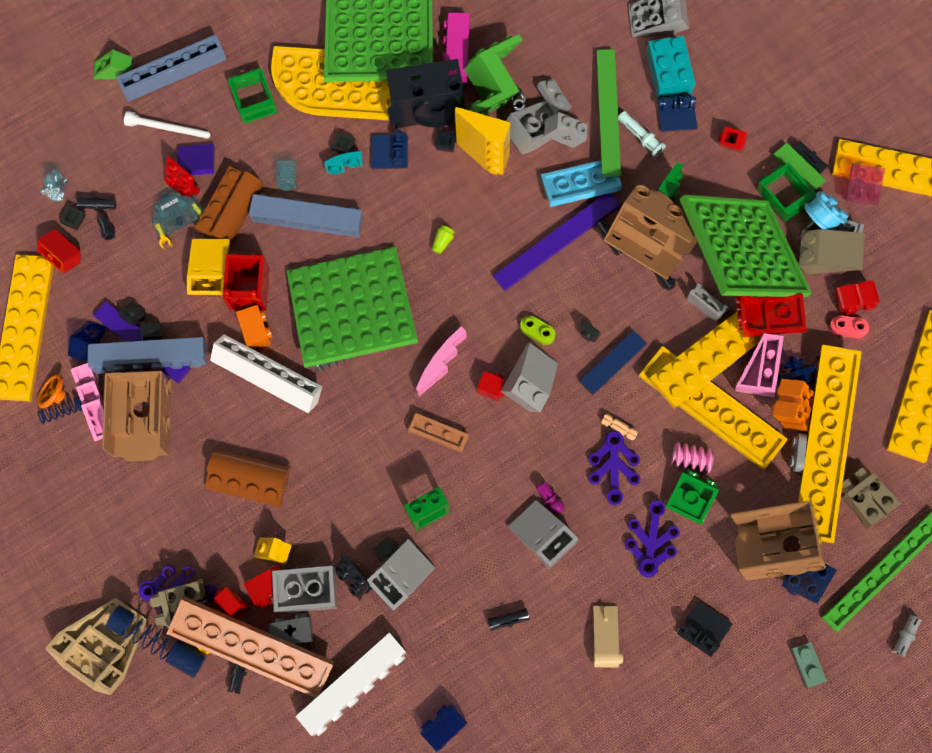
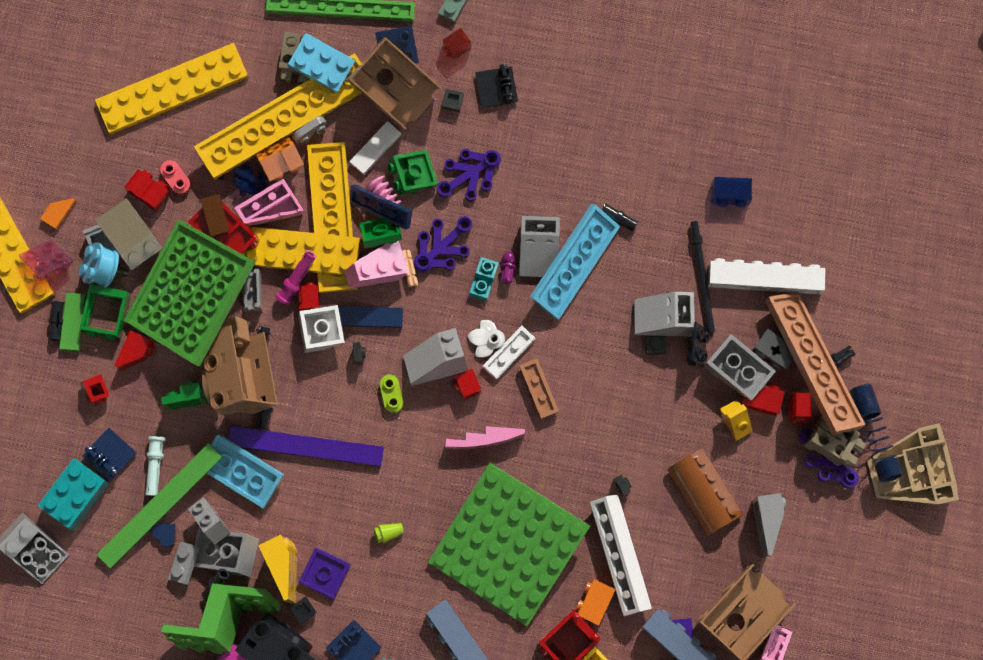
camera: 140 degrees left, 5 degrees up
(185, 504) = (768, 518): none -> light grey slope
(311, 424) = (623, 485): none -> pearl dark grey plate
(425, 513) = (607, 335): green window -> none
(432, 660) = (697, 241): none -> black bar
(457, 176) = (324, 573): none -> dark purple tile
(486, 438) = (508, 352): none -> white tile
(506, 549) = (574, 261): none -> medium azure plate
(514, 430) = (483, 338): none -> white plate
(559, 473) = (483, 279): none -> teal slope
(586, 103) = (165, 533): none -> dark blue tile
(606, 637) = (566, 143): tan door -> none
(632, 319) = (320, 328): none -> white slope
(640, 401) = (378, 267): none -> bright pink wedge
(664, 335) = (309, 297): none -> red window
(665, 426) = (379, 232): none -> green plate
(685, 330) = (292, 283): none -> dark pink pin
(685, 442) = (380, 206): none -> dark blue tile
(686, 261) = (239, 330): none -> medium nougat brick
(724, 582) = (452, 100): none -> pearl dark grey plate
(738, 486) = (375, 148): none -> white tile
(739, 185) = (134, 351): none -> red slope
(770, 629) = (456, 44): none -> clear red brick
(789, 314) = (215, 215): none -> reddish brown tile
(847, 506) = (321, 63): none -> medium azure plate
(896, 224) = (57, 212): none -> orange tile

